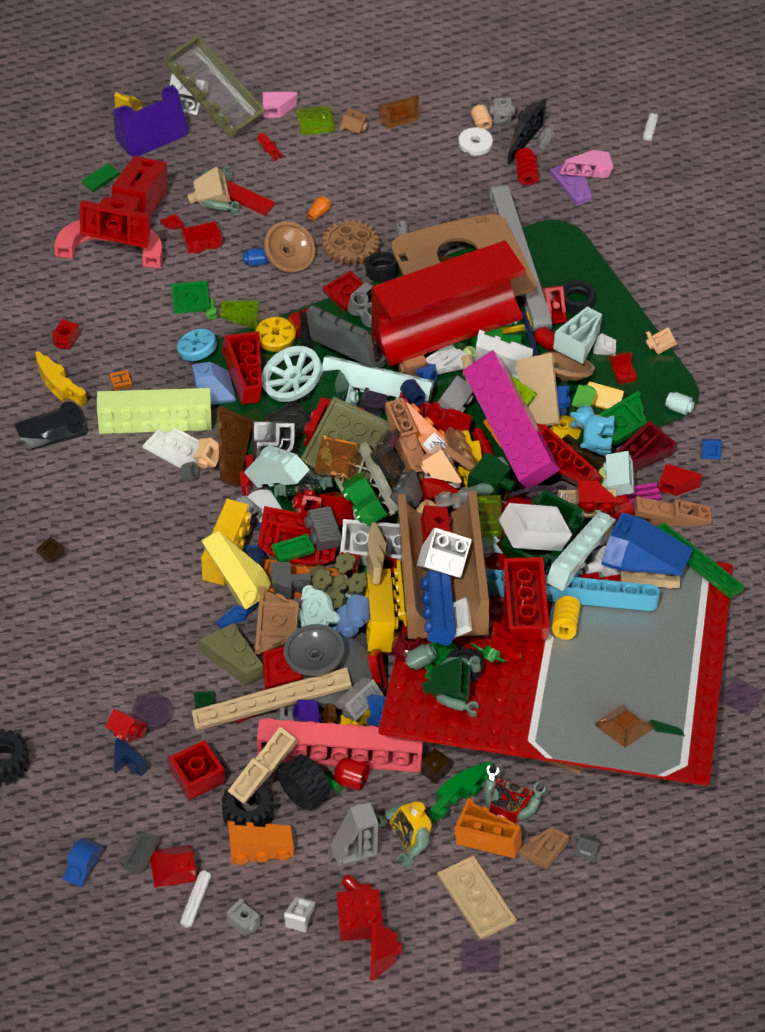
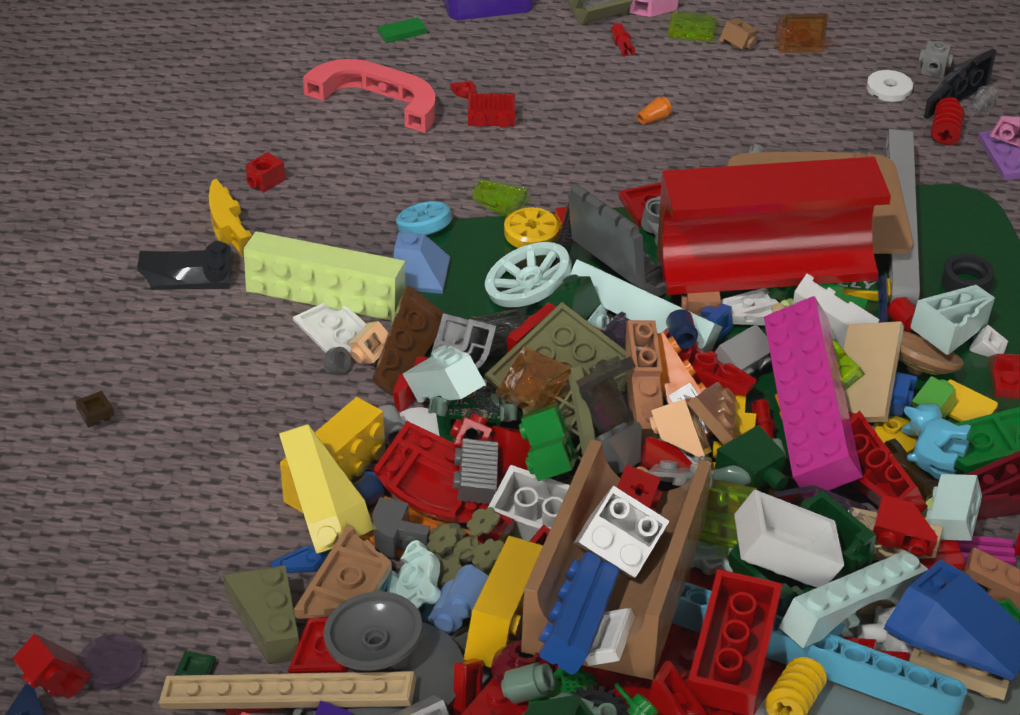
camera: 20 degrees right, 10 degrees down
(120, 380) = (308, 234): orange tile -> none
(128, 210) = (414, 48): red brick -> none
(190, 297) = (445, 169): green tile -> none
(211, 313) = (463, 191): bright green hand -> none
(212, 190) = (528, 64): tan torso -> none
(243, 362) = (473, 247): red wedge -> none
(249, 199) = (564, 80): red tile -> none
(255, 257) = (550, 144): blue brick -> none
(293, 548) = (422, 487): green tile -> none
(295, 240) = (597, 128): medium nougat dish -> none
(350, 242) = (678, 151): medium nougat gear -> none
(375, 553) = (528, 517): tan slope -> none
(481, 117) = (906, 61): light nougat brick -> none
(556, 303) = (932, 272): red slope -> none

